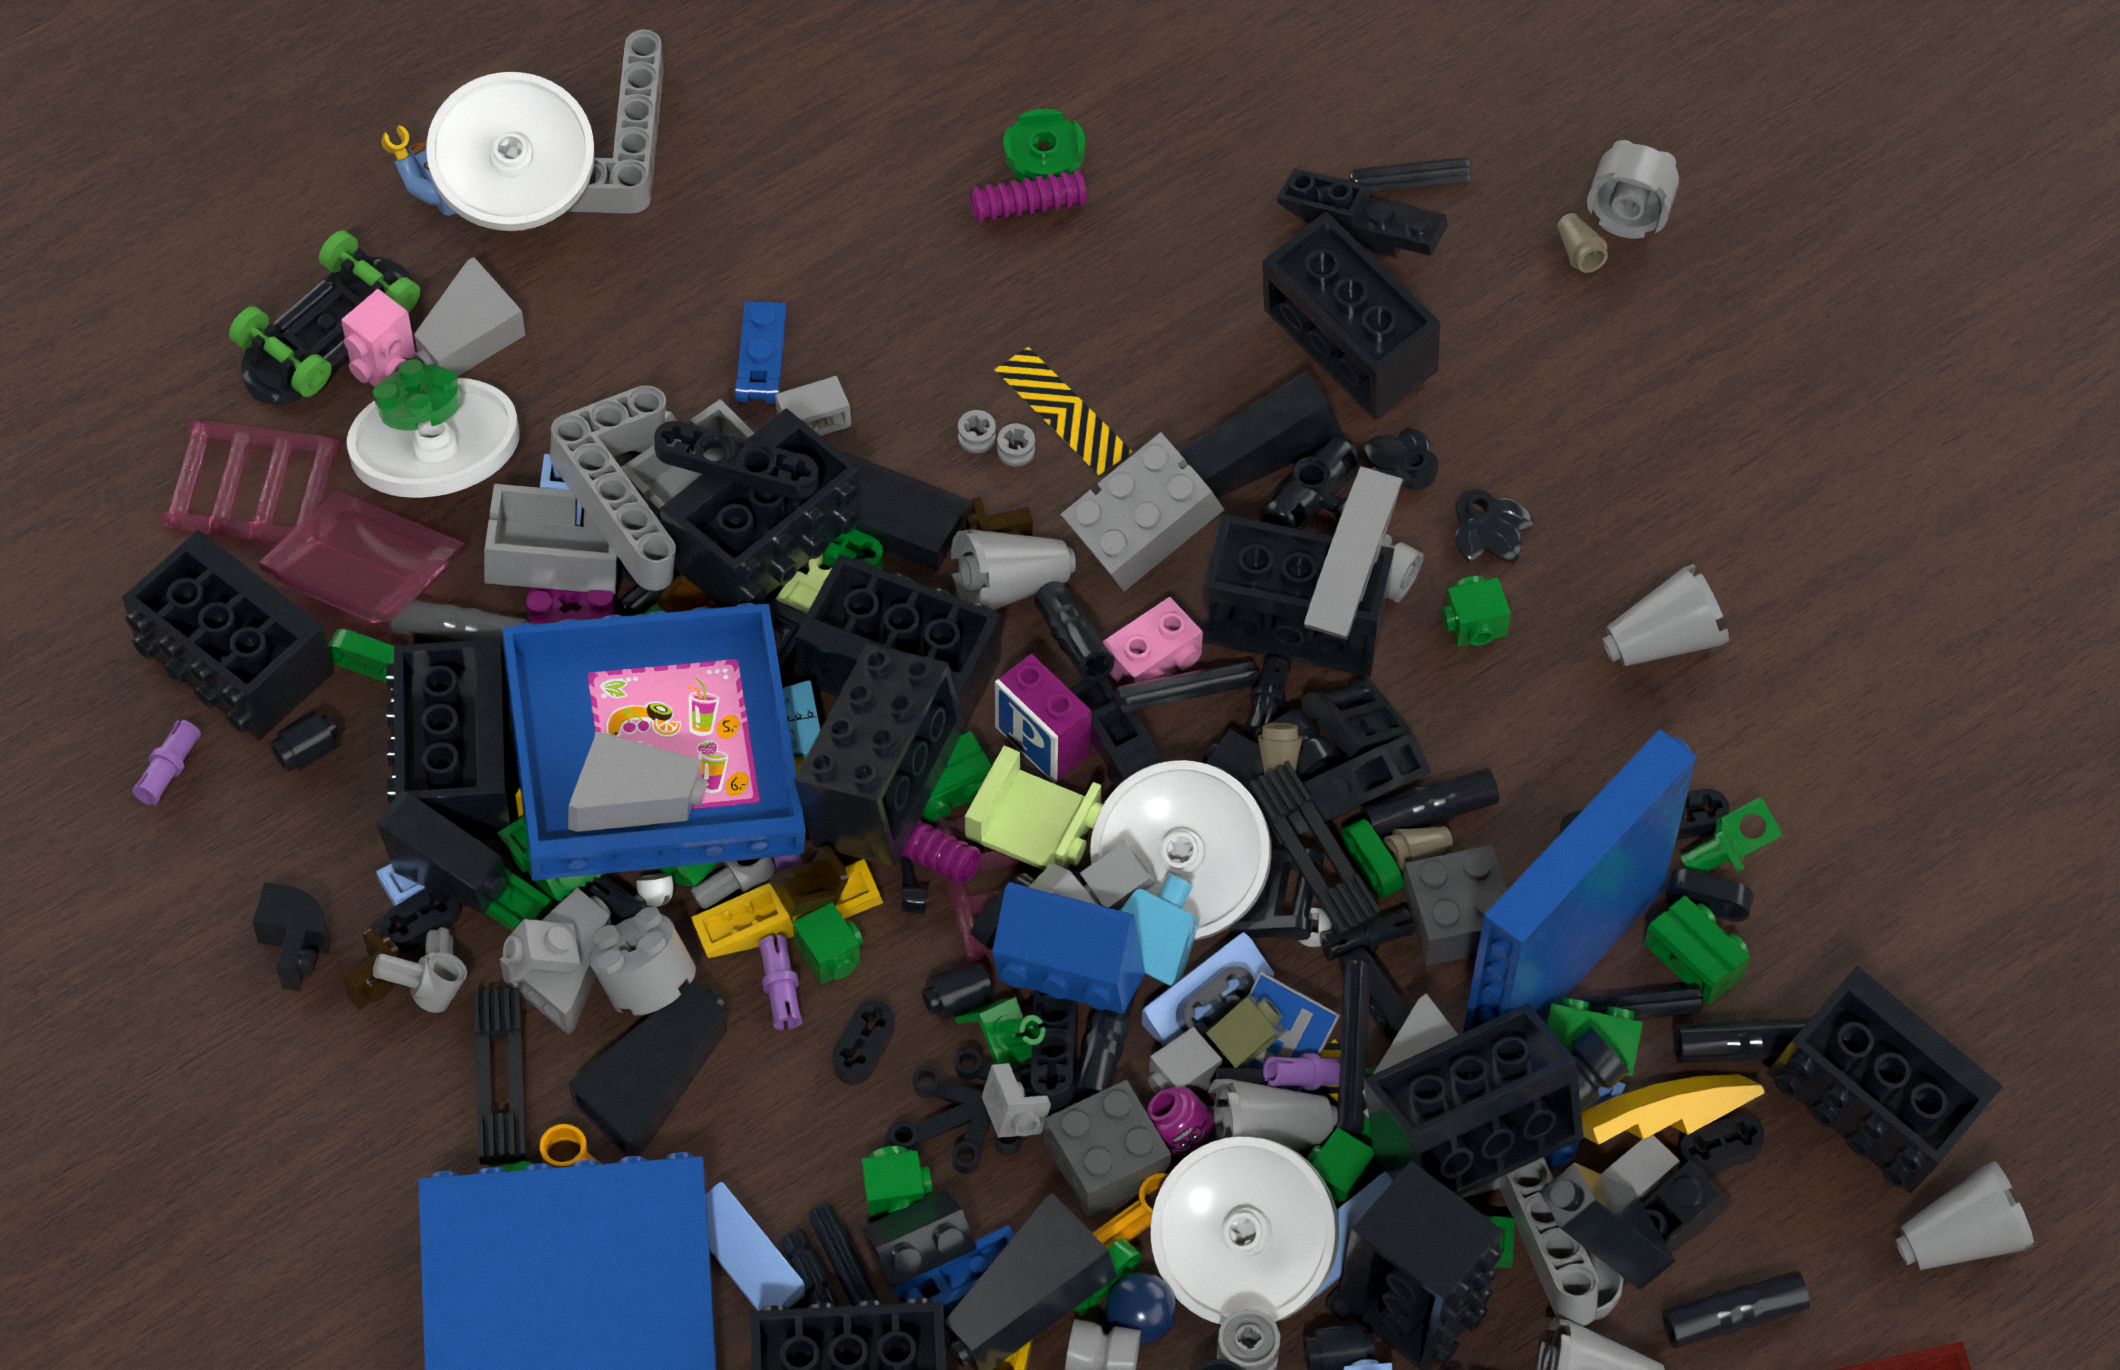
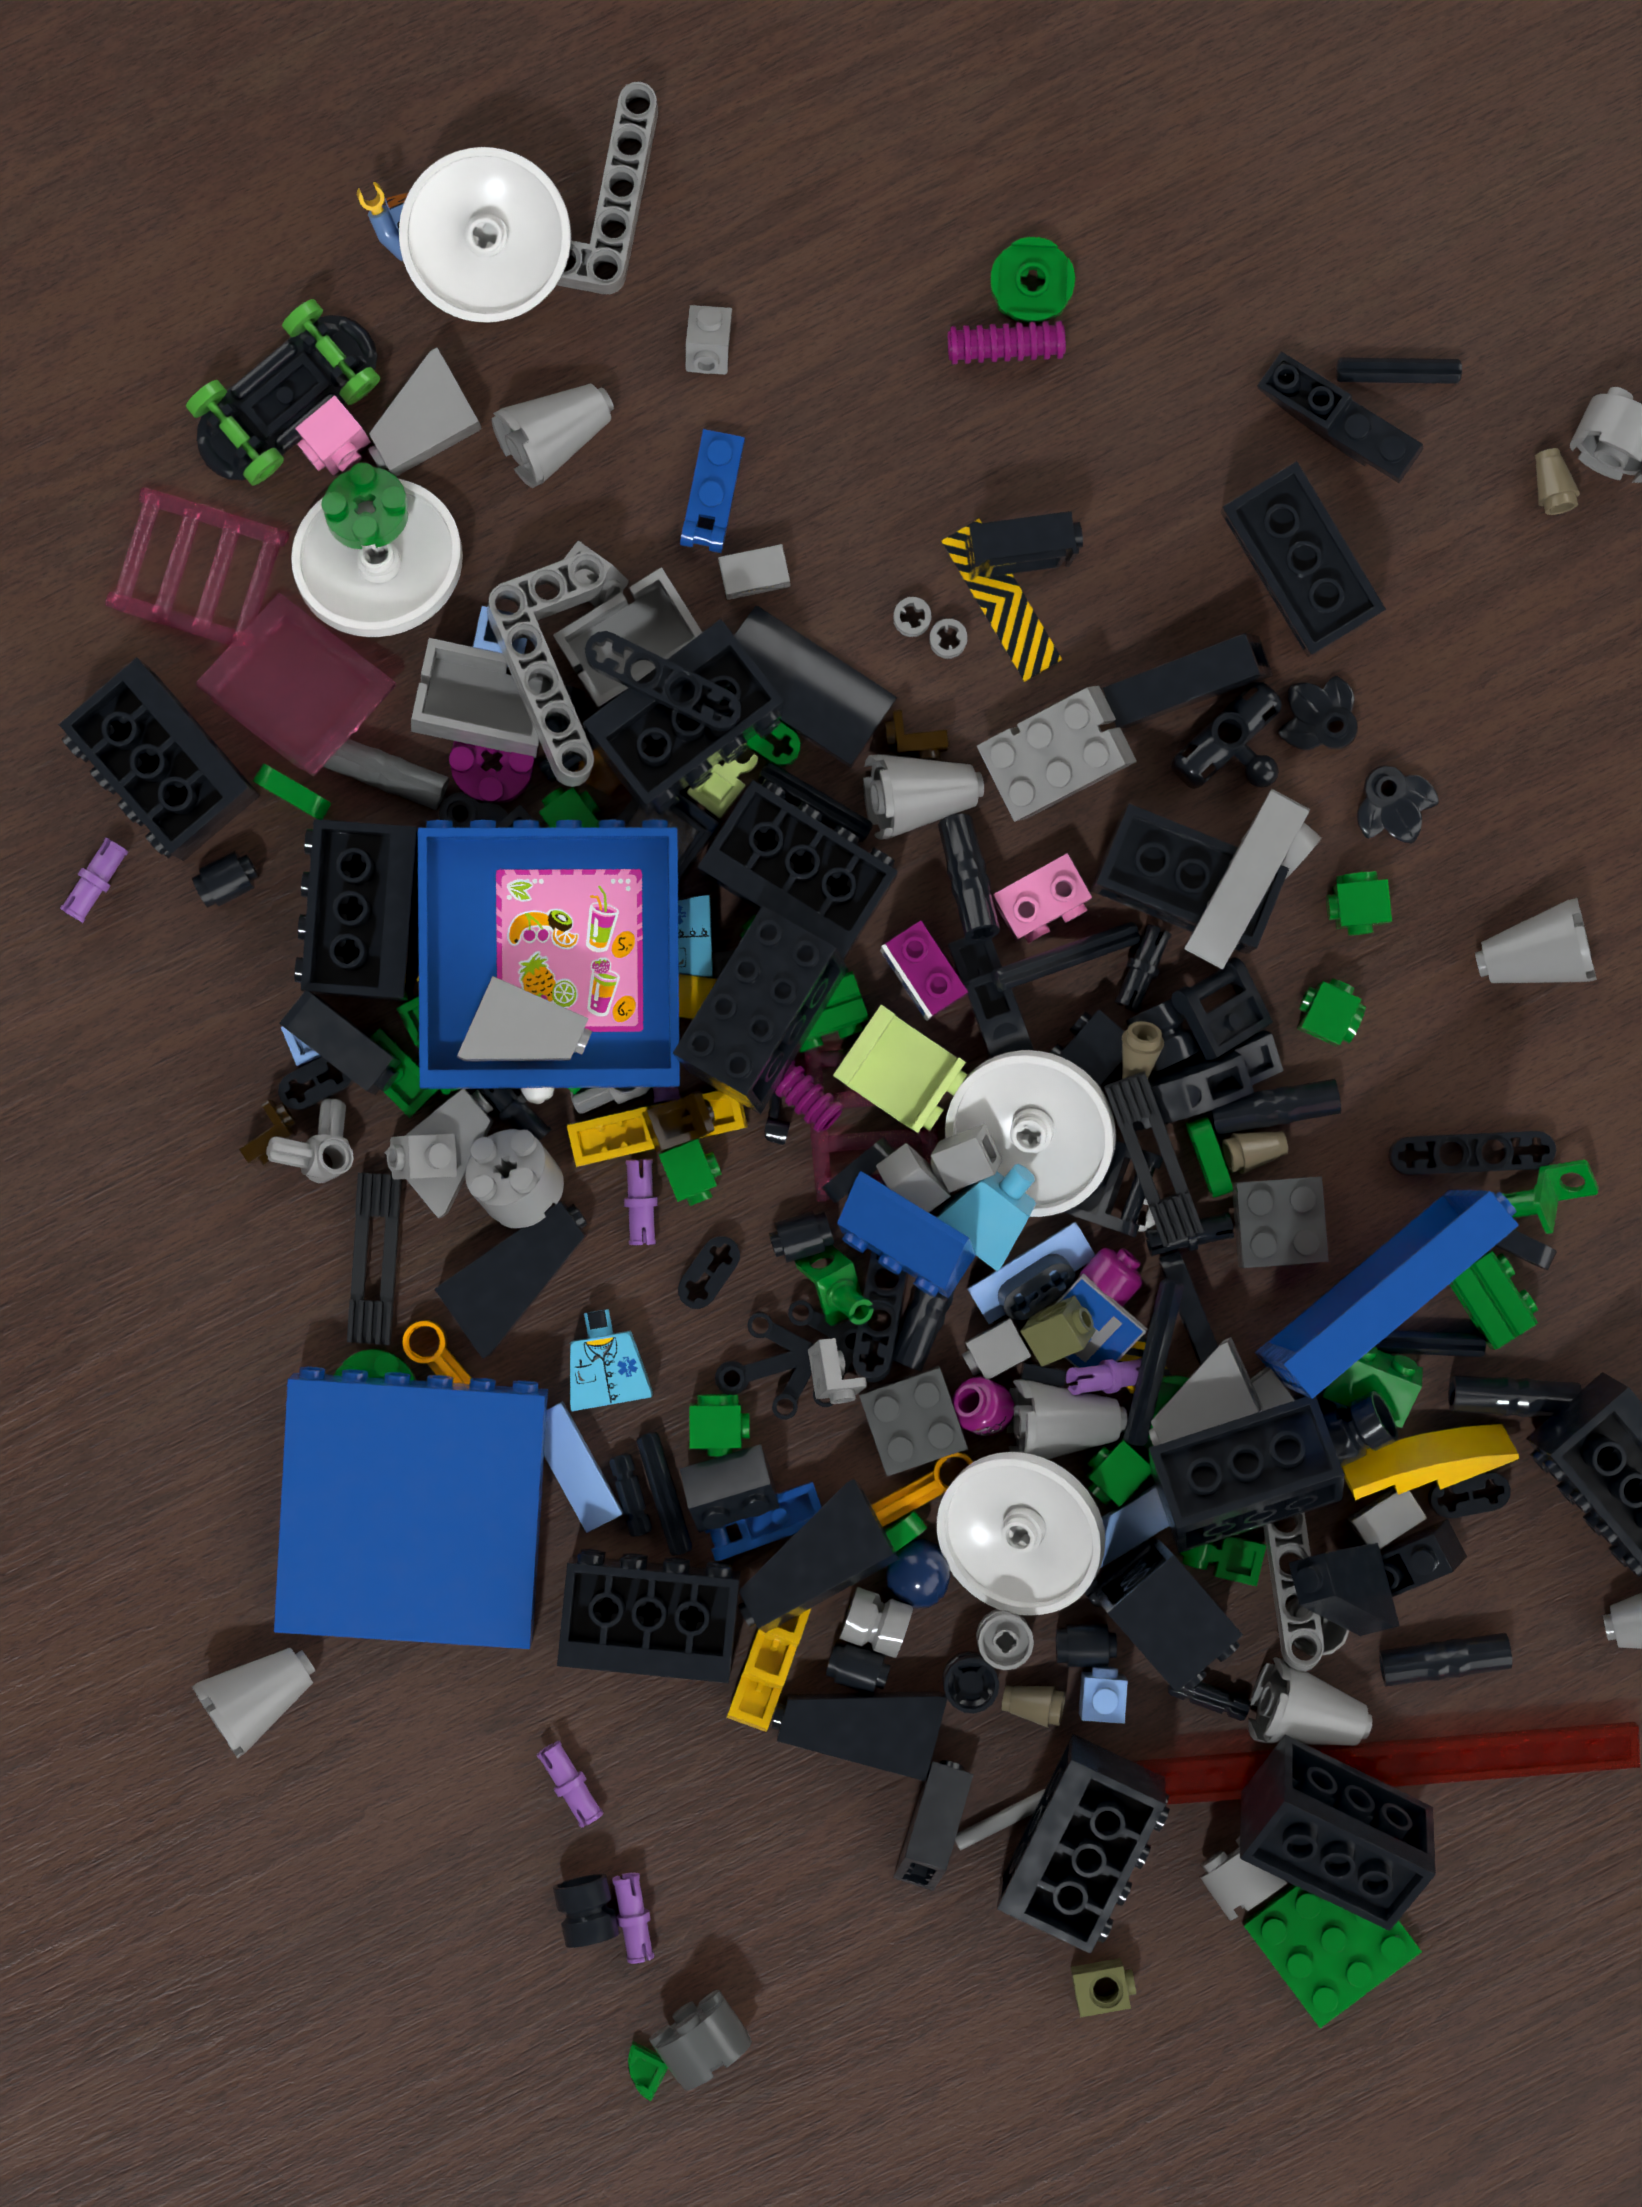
camera: 10 degrees right, 30 degrees up
(297, 924) = (205, 1075): black brick -> none
(591, 314) = (550, 429): none -> light grey cone
(738, 232) = (708, 339): none -> light grey bracket
(767, 1144) = (605, 1366): none -> medium azure torso
(1074, 343) = (1022, 544): none -> black window
(1299, 972) = (1115, 1274): none -> magenta head
(1467, 712) = (1331, 1012): none -> green brick

